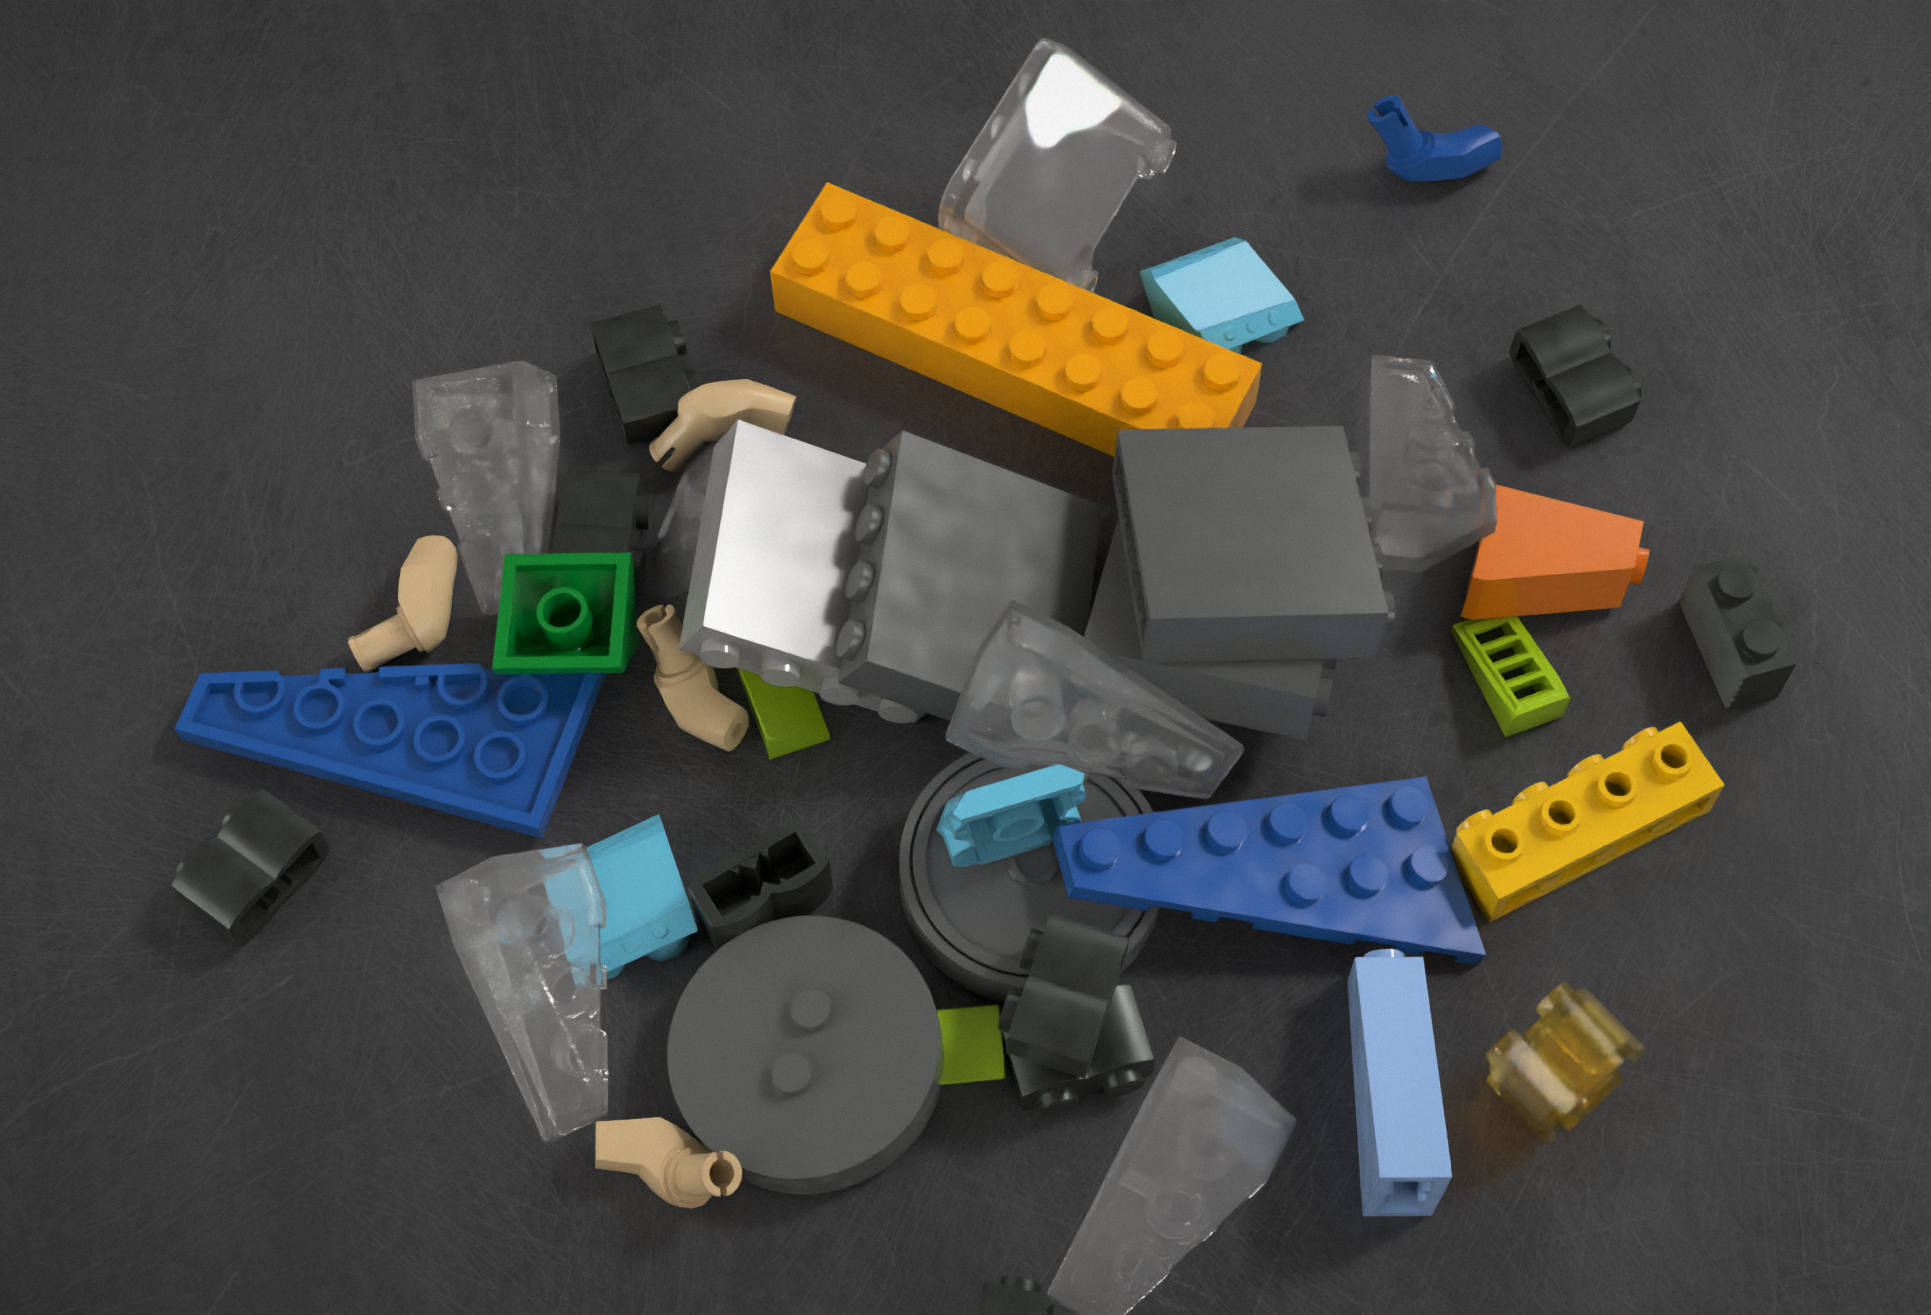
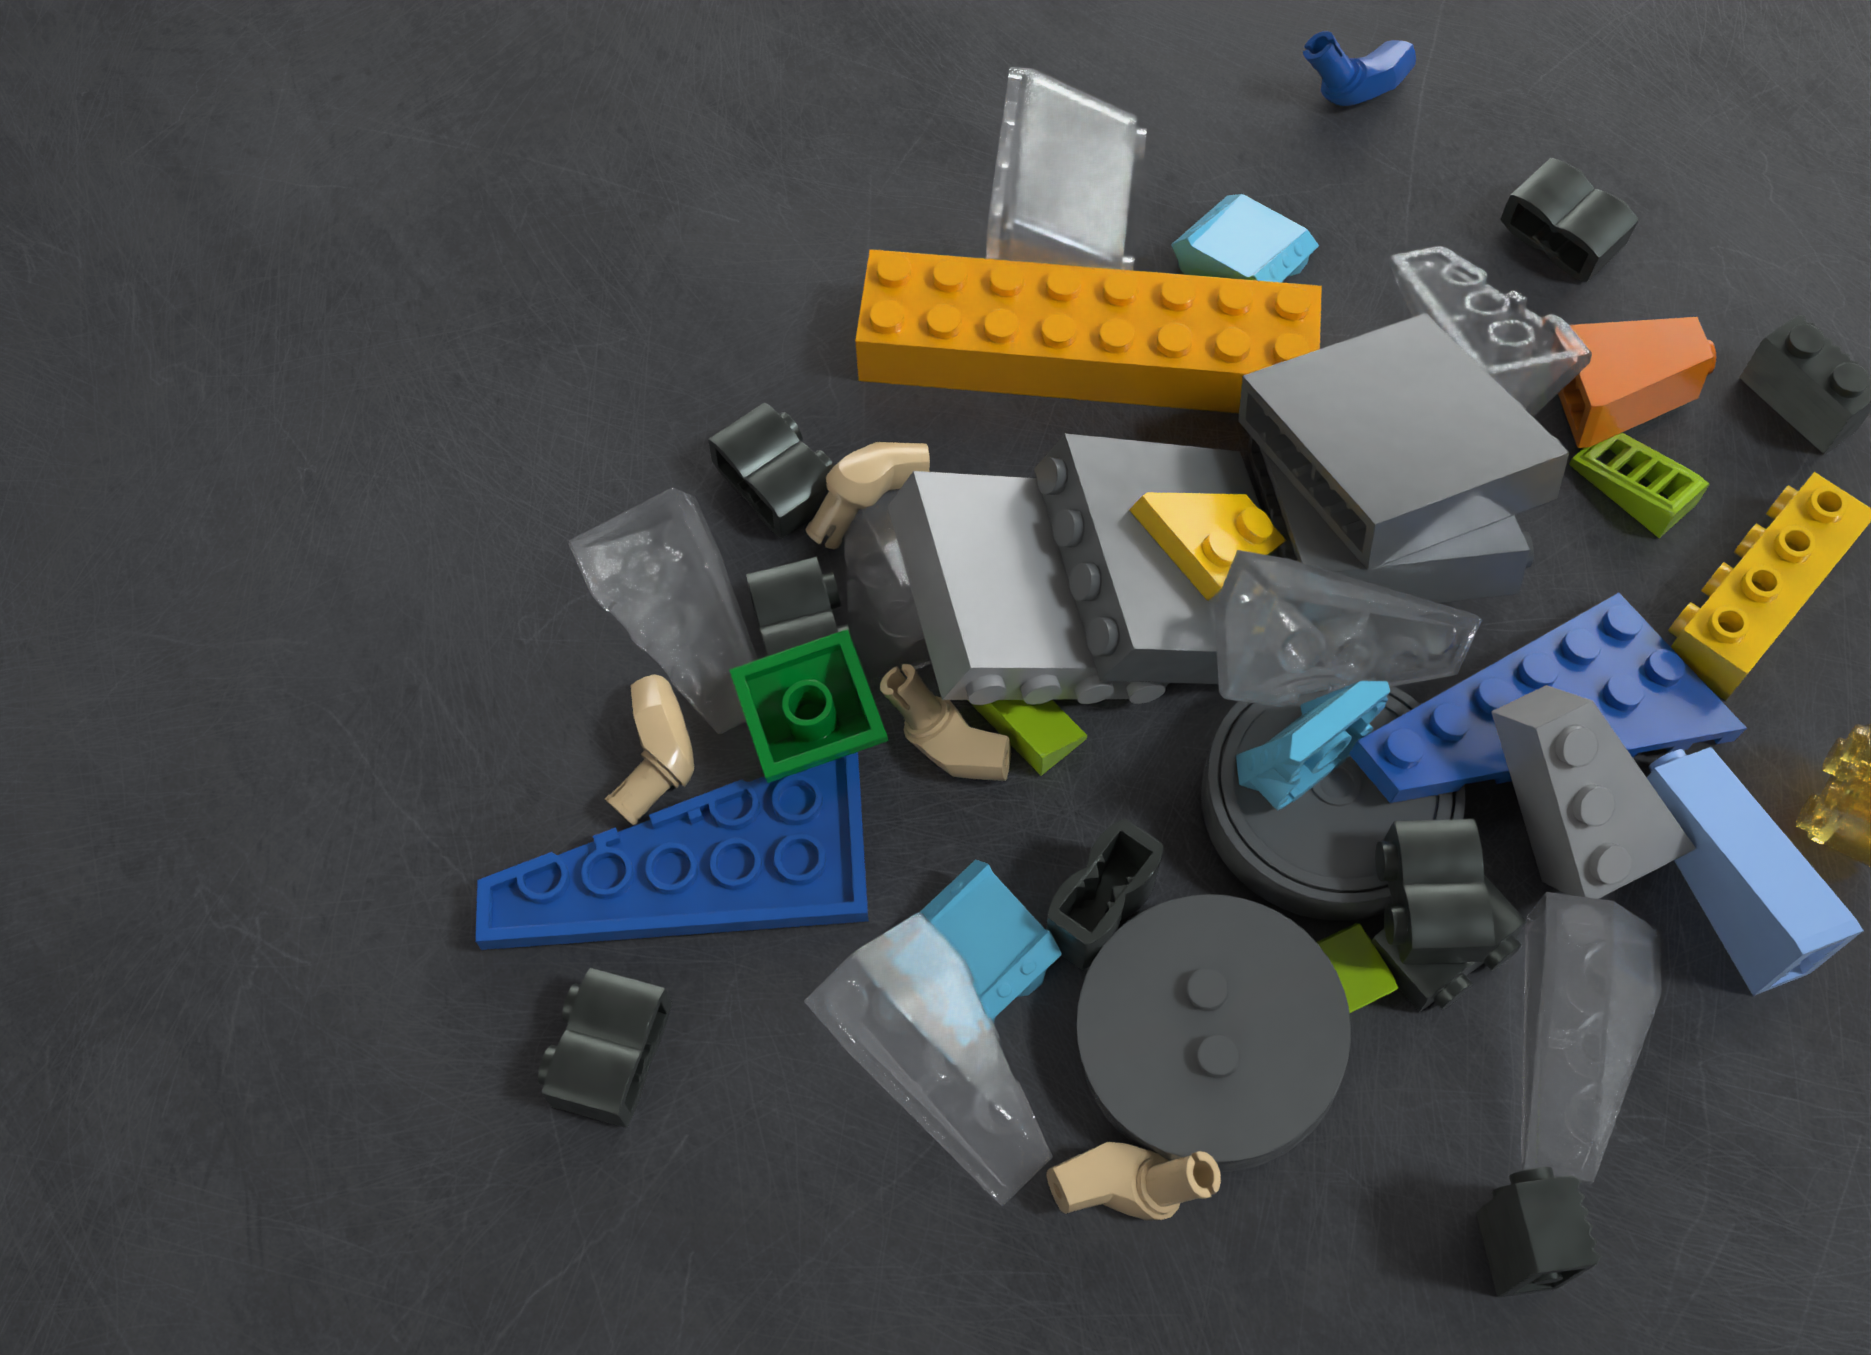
camera: 20 degrees left, 0 degrees up
(1005, 565) = (1206, 532): none -> yellow wing
(1259, 961) = (1583, 796): none -> light grey wedge

